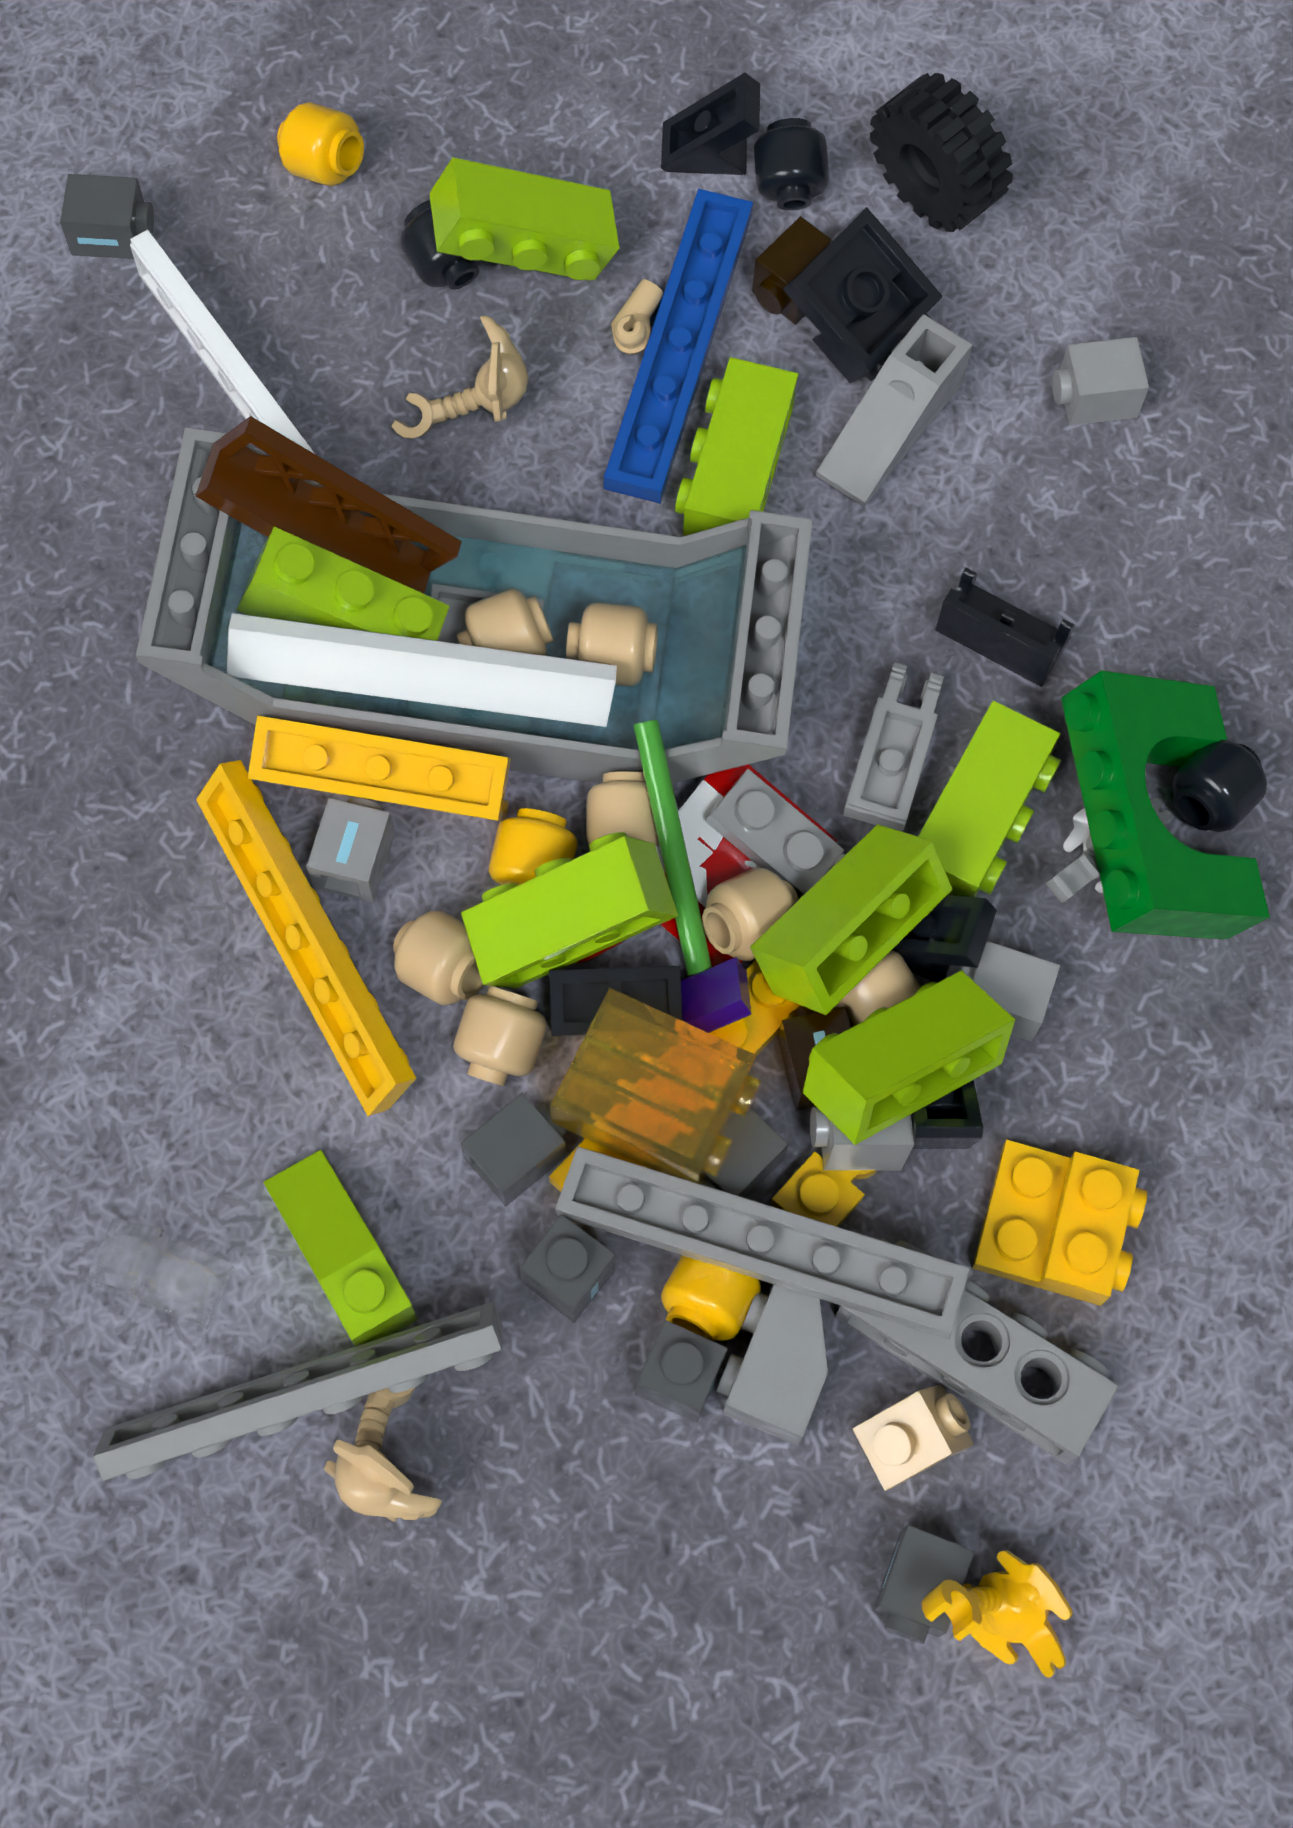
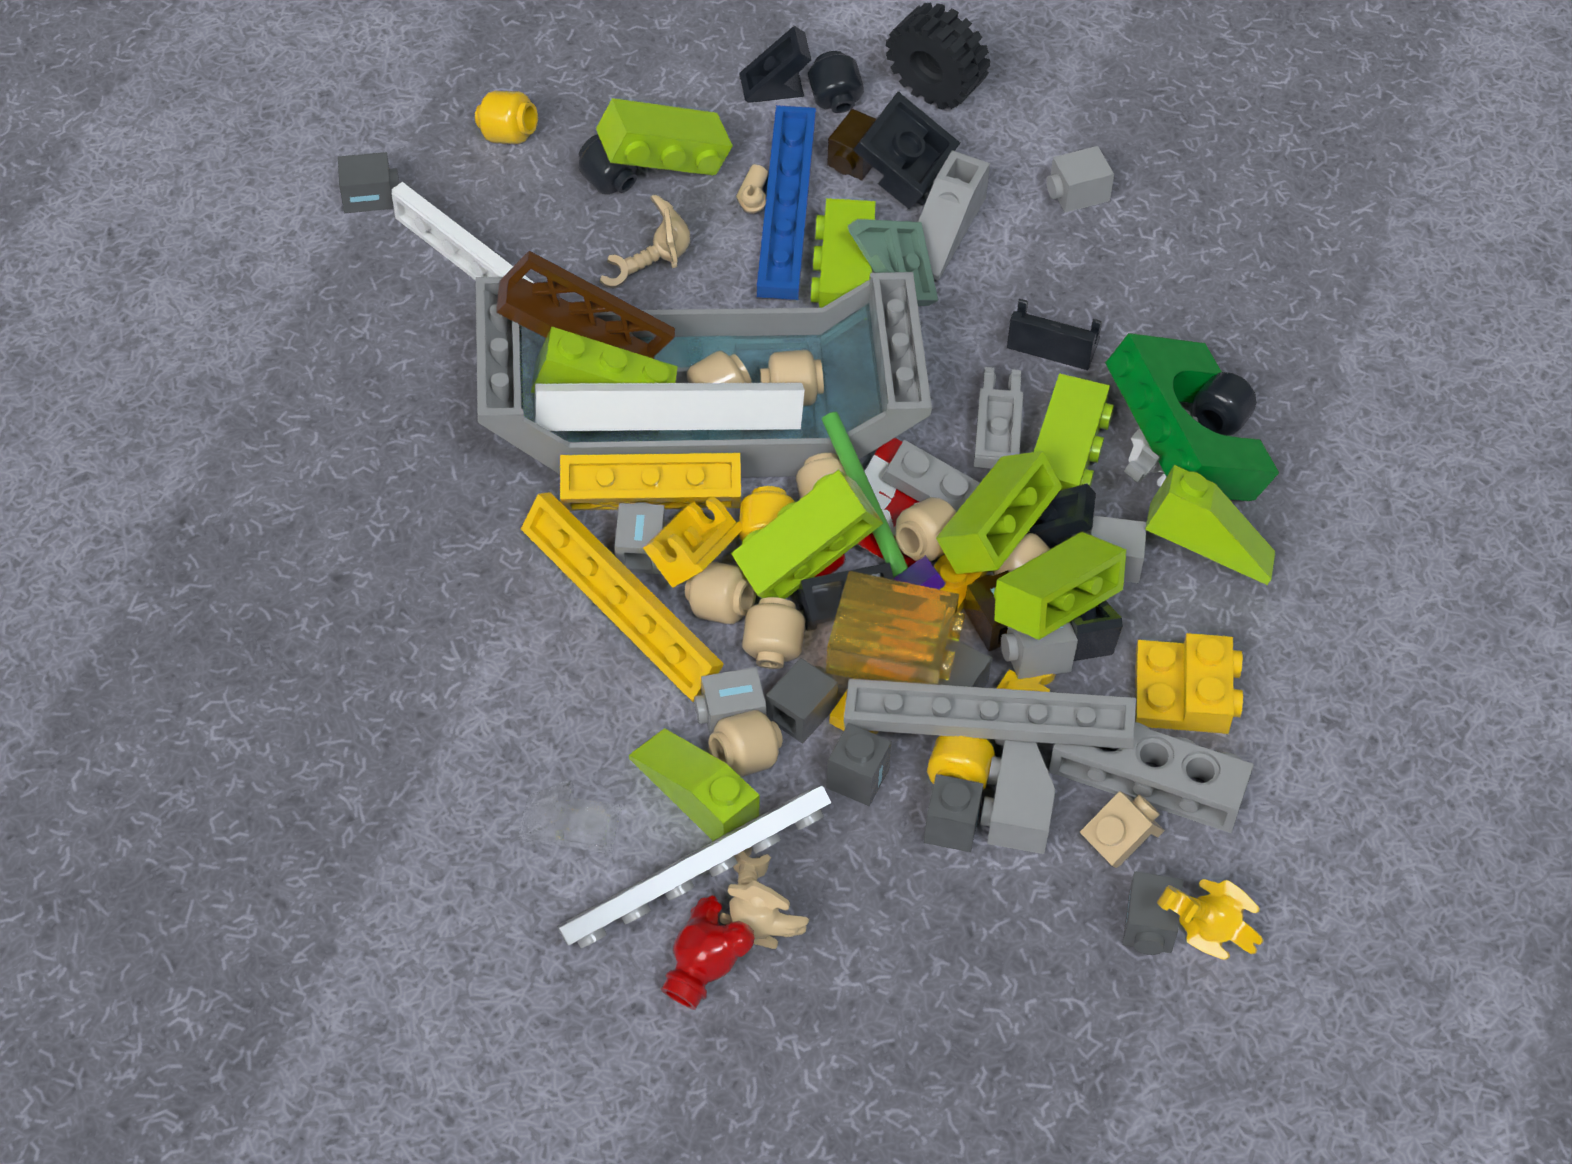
camera: 10 degrees left, 15 degrees down
(288, 1520) = (704, 952): none -> red animal
(416, 876) = (692, 541): none -> yellow hinge
(416, 1135) = (728, 695): none -> light grey brick
(420, 1203) = (746, 742): none -> tan head
(809, 469) = (897, 248): none -> sand green wing
(1147, 986) = (1206, 522): none -> lime slope

